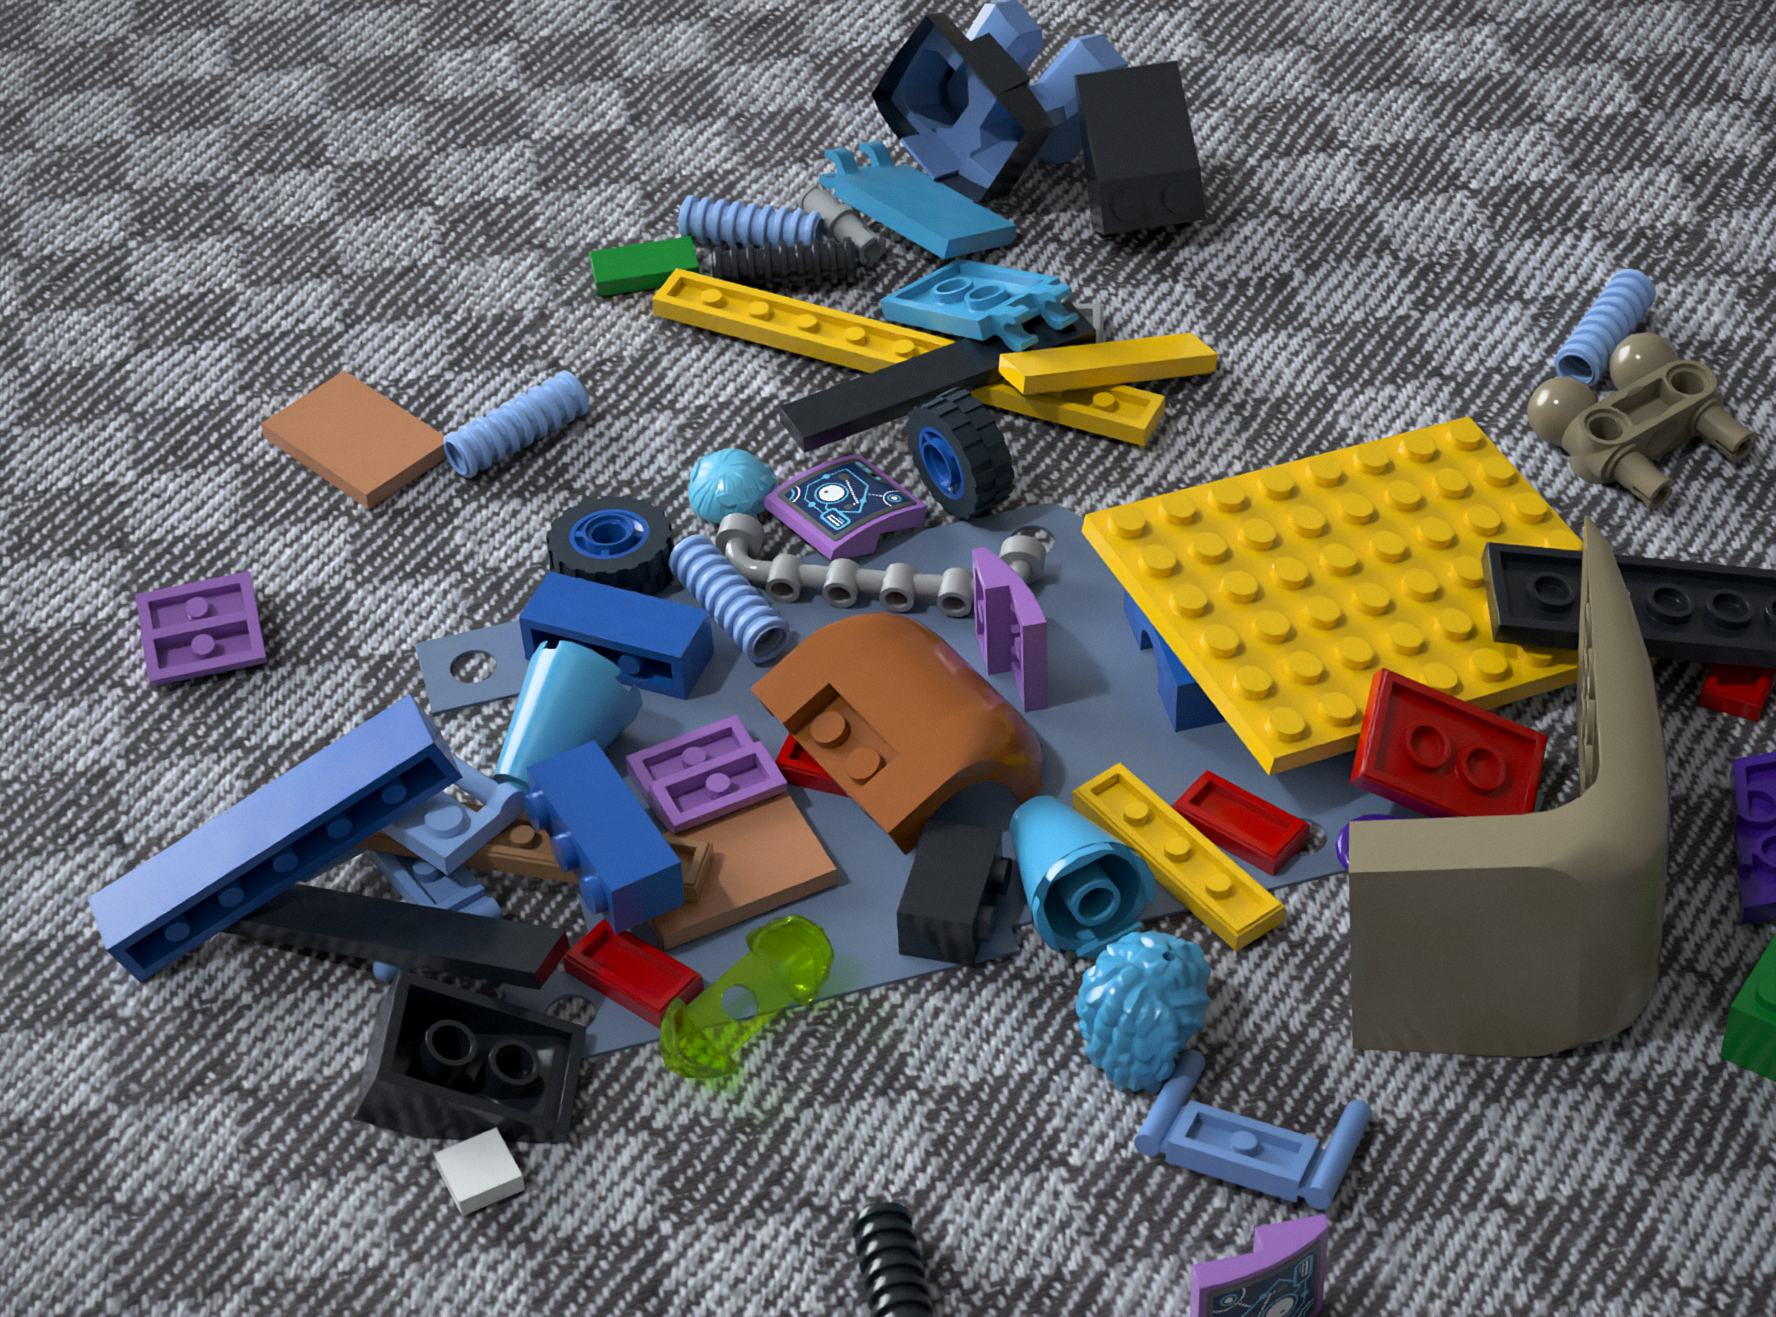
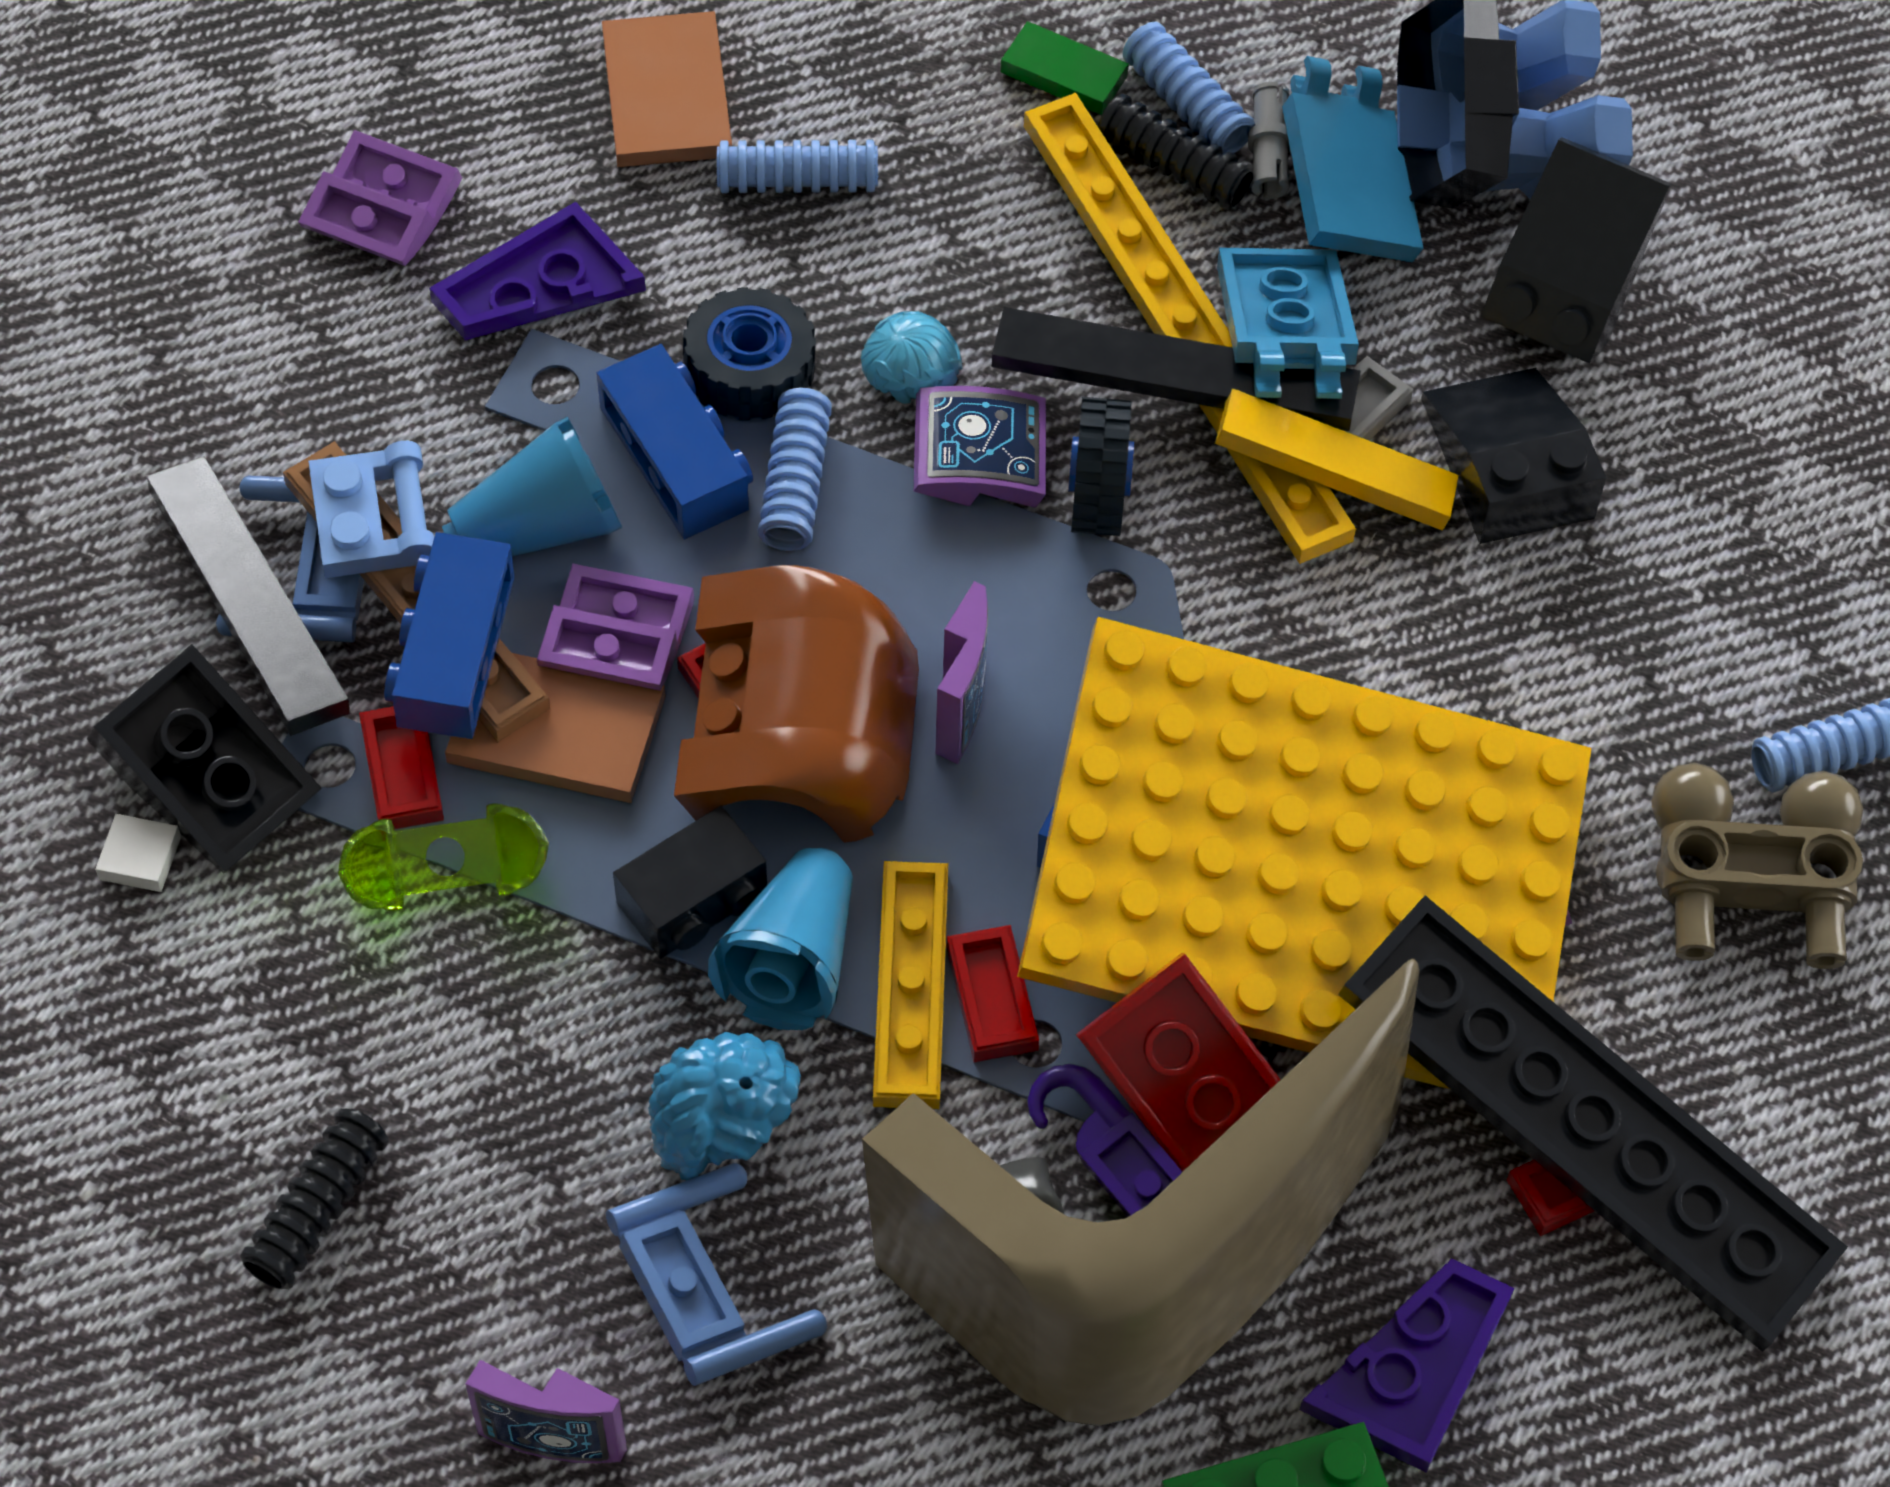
camera: 35 degrees right, 15 degrees up
(273, 838) = (221, 452): brick -> none
(388, 601) = (537, 275): none -> dark purple wing
(742, 537) = (943, 554): light grey bar -> none
(1222, 294) = (1516, 454): none -> black slope

